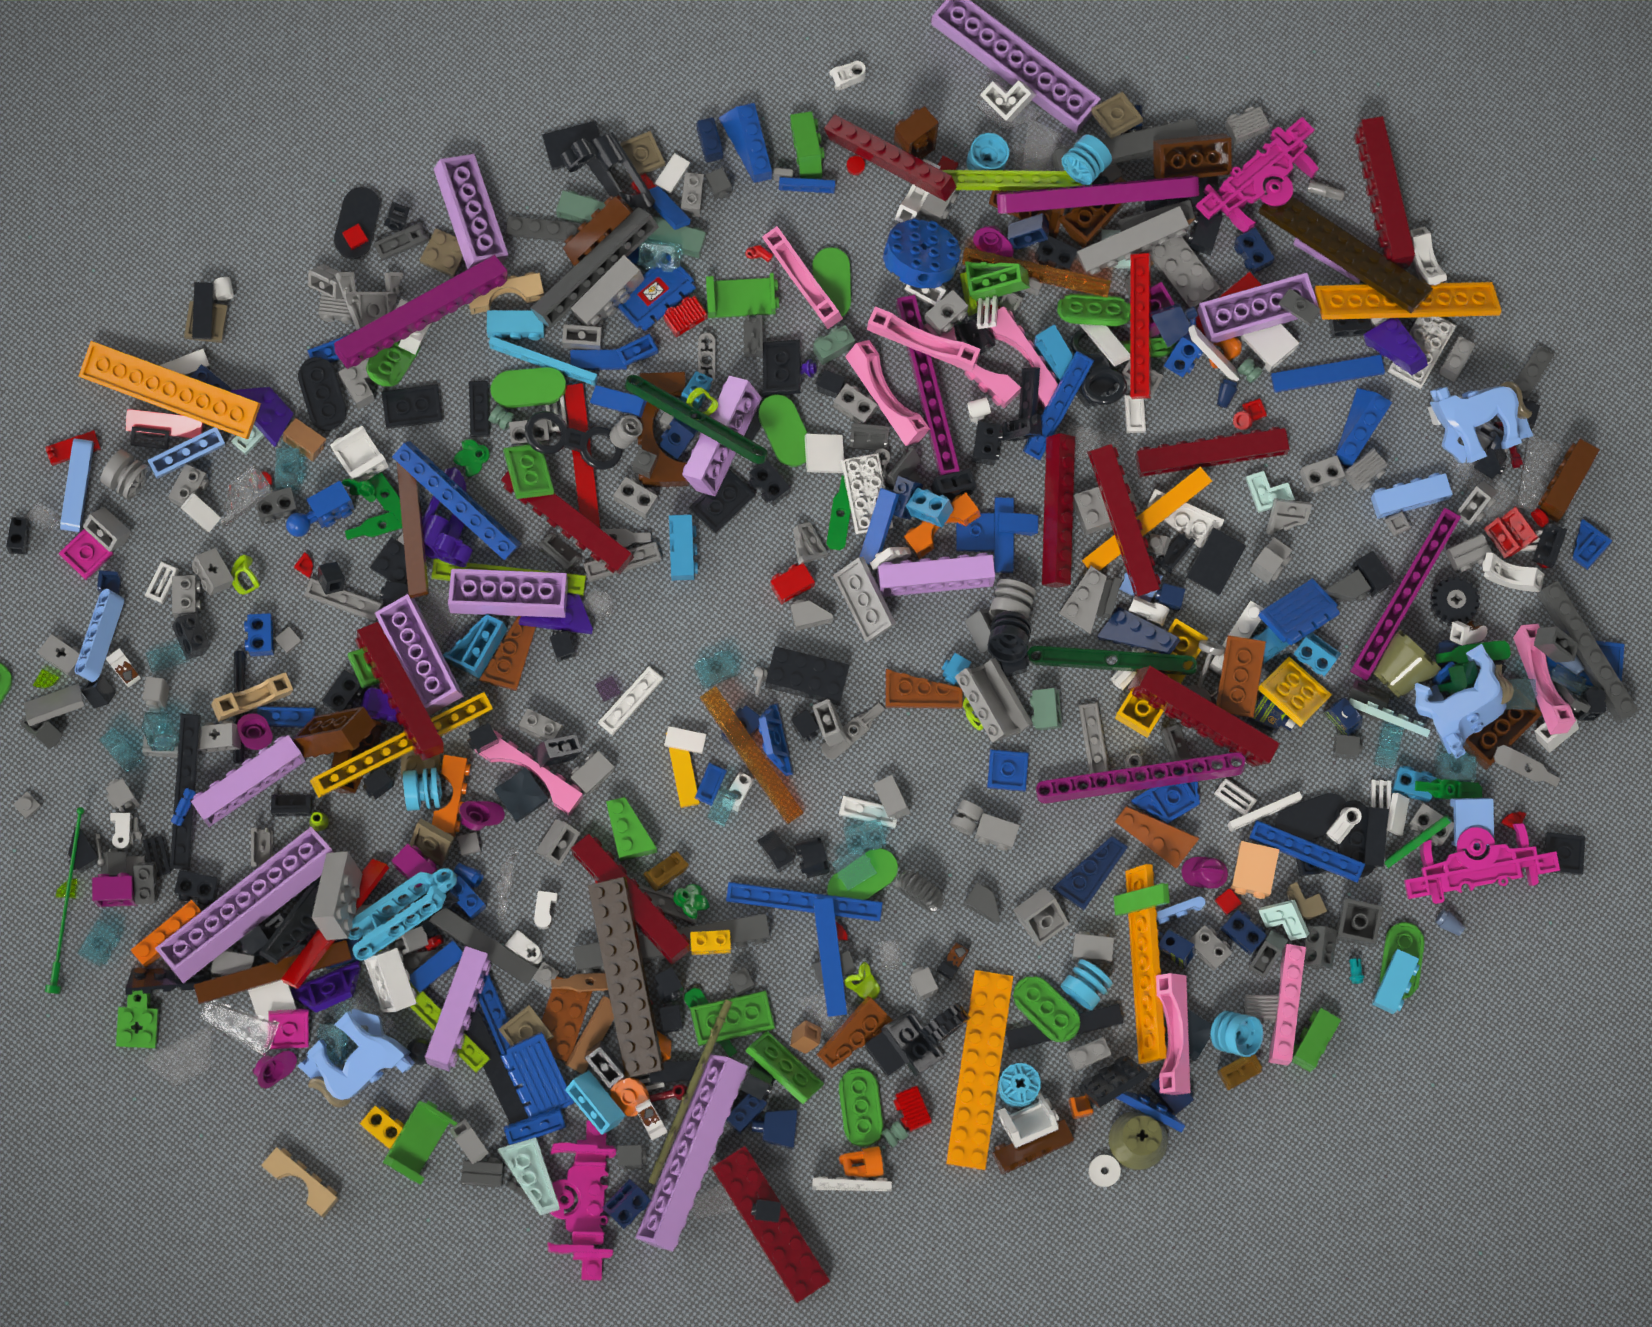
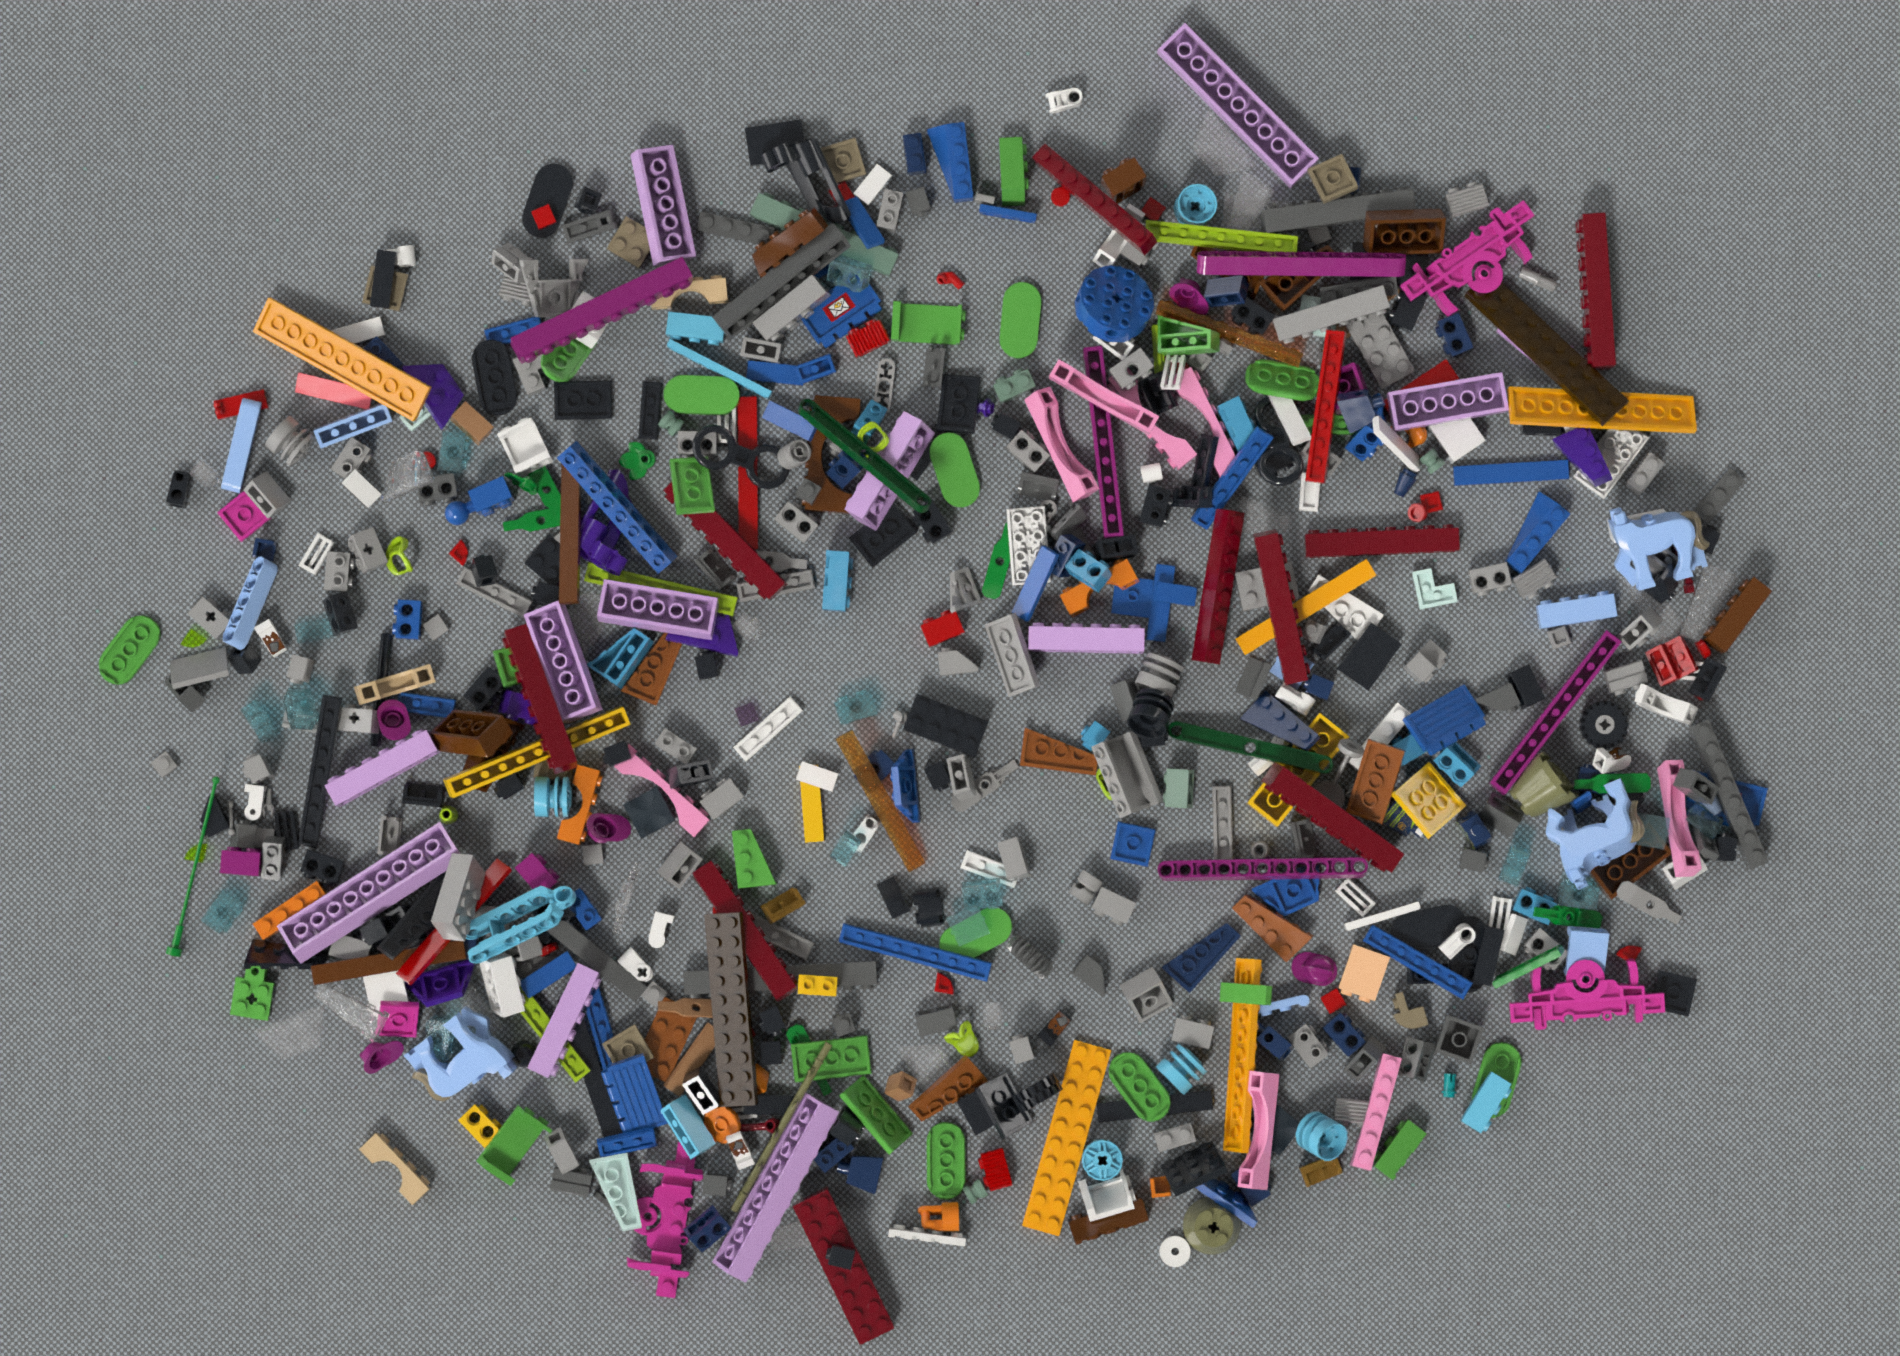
camera: 15 degrees right, 10 degrees up
(166, 439) = (334, 407): black tile -> none
(183, 807) = (316, 787): blue axle -> none
(432, 842) = (556, 850): dark tan plate -> none
(470, 875) = (590, 887): blue cone -> none
(691, 900) = (807, 938): green plate -> none
(710, 784) = (837, 823): blue tile -> none
(802, 277) = (991, 313): bright pink arch -> none
(824, 453) = (990, 498): white tile -> none
(829, 957) = (933, 1012): blue tile -> none
(891, 554) = (1047, 614): white wing -> none
(1008, 103) = (1223, 153): white brick -> none
(1084, 602) = (1232, 681): light grey wing -> none
(1086, 159) = (1293, 228): medium azure wheel -> none
(1287, 514) = (1448, 616): light grey wing -> none
(1288, 915) = (1389, 1024): light aqua plate -> none
(1299, 307) = (1488, 408): dark grey plate -> none
(1387, 715) = (1518, 838): light aqua wing -> none
(1424, 259) = (1627, 364): white arch -> none
(1449, 922) = (1549, 1049): sand blue cone -> none
(1462, 677) = (1595, 808): dark green brick -> none
(1589, 545) = (1748, 682): blue wing -> none

